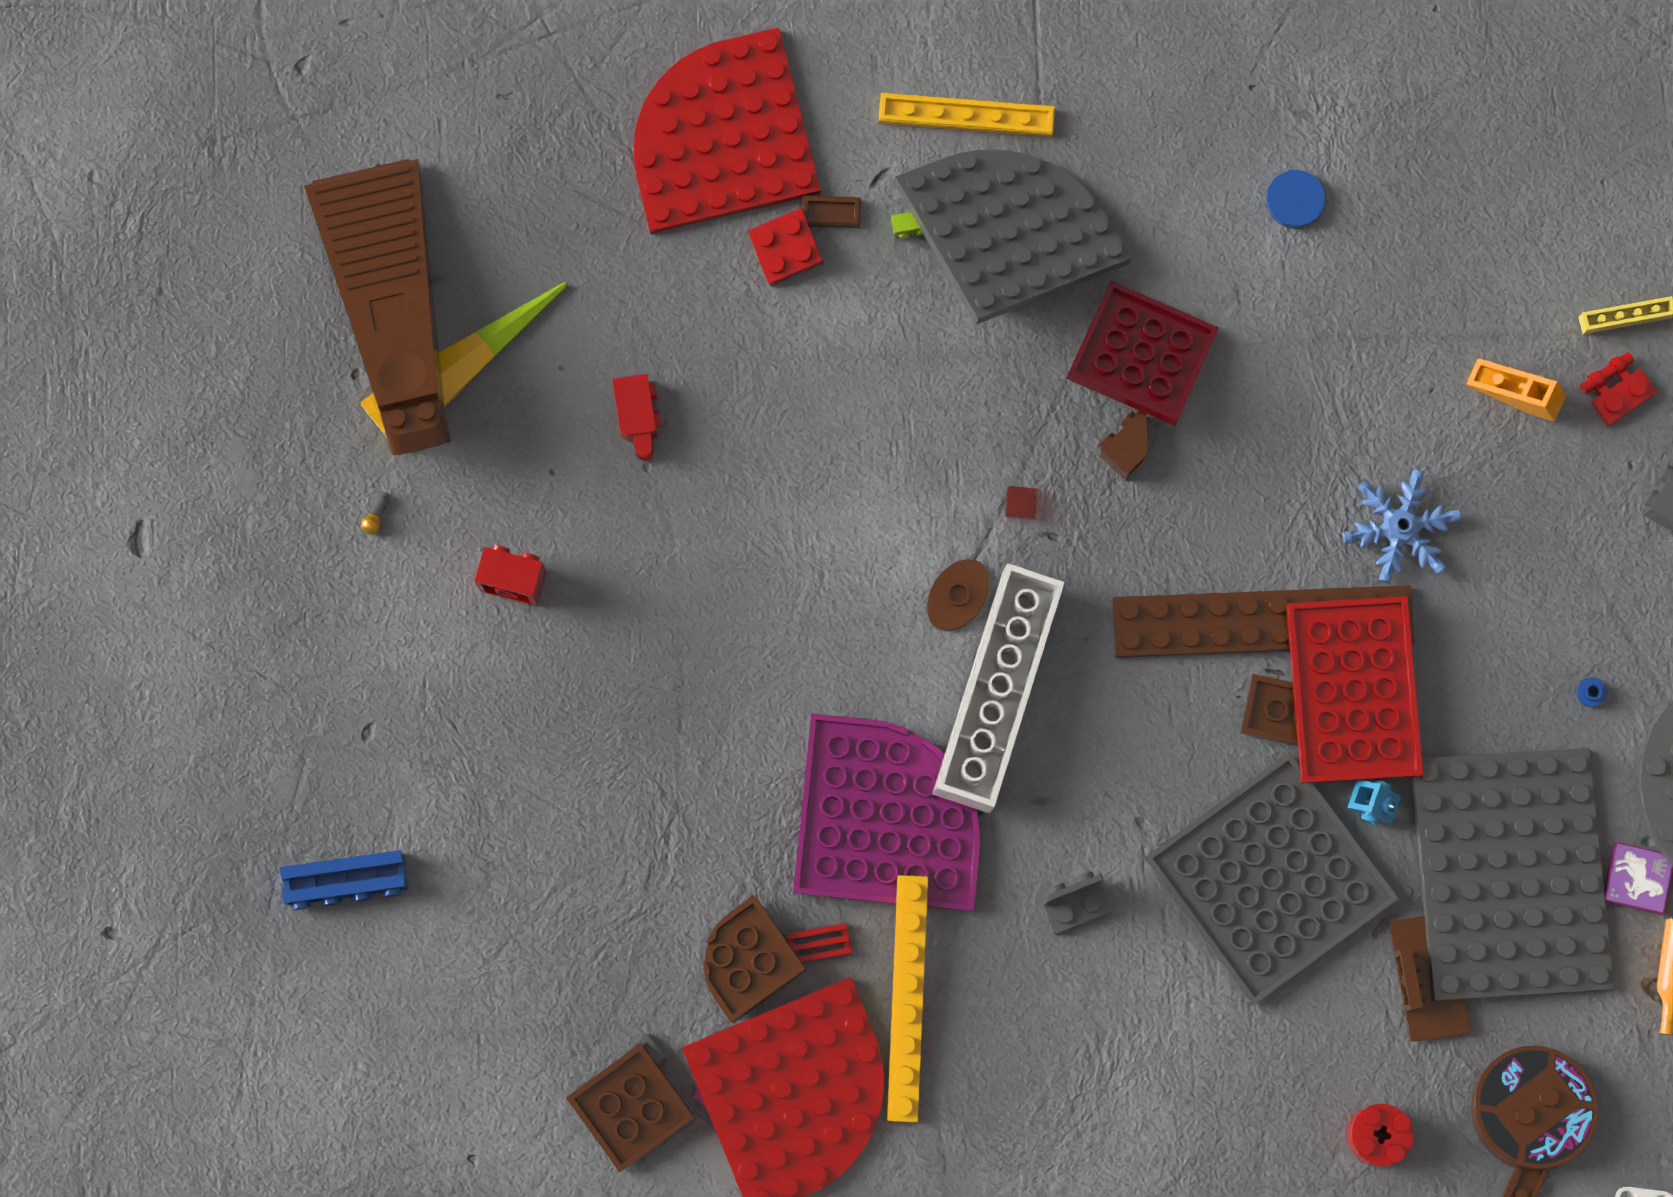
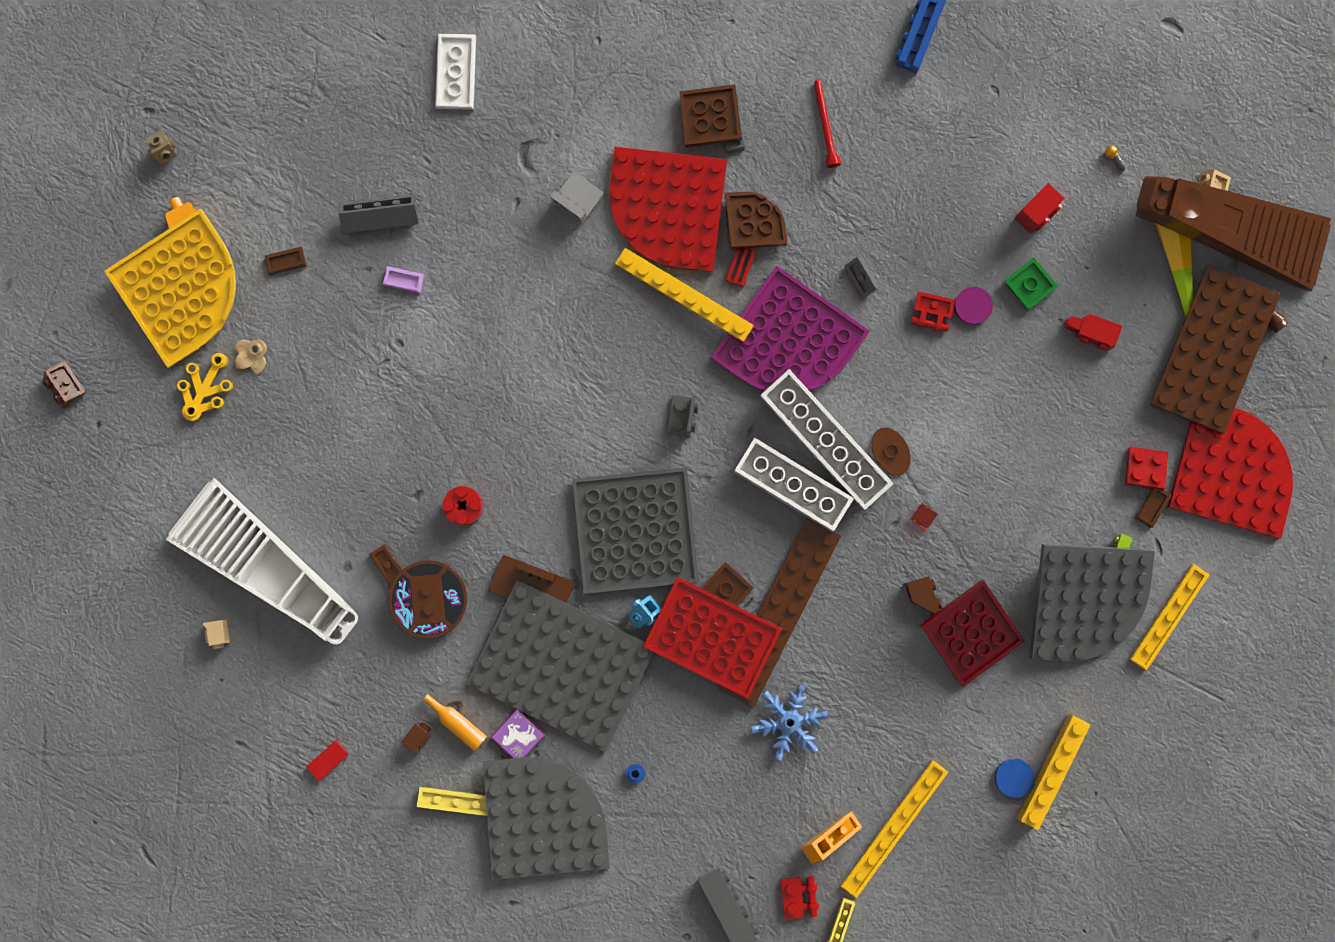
camera: 120 degrees right, 5 degrees up
(338, 364) = (1215, 179): none -> tan bracket
(485, 188) = (1277, 322): none -> reddish brown cone
(573, 241) = (1215, 349): none -> reddish brown plate
(594, 901) = (832, 159): none -> red piece
(620, 533) = (1030, 284): none -> green plate
(693, 594) = (973, 305): none -> magenta tile
(725, 648) = (935, 306): none -> red plate
(740, 766) = (862, 276): none -> dark grey plate
(1084, 698) = (793, 485): none -> white brick
(1259, 153) = (1053, 771): none -> yellow brick
(1454, 316) = (894, 829): none -> yellow tile

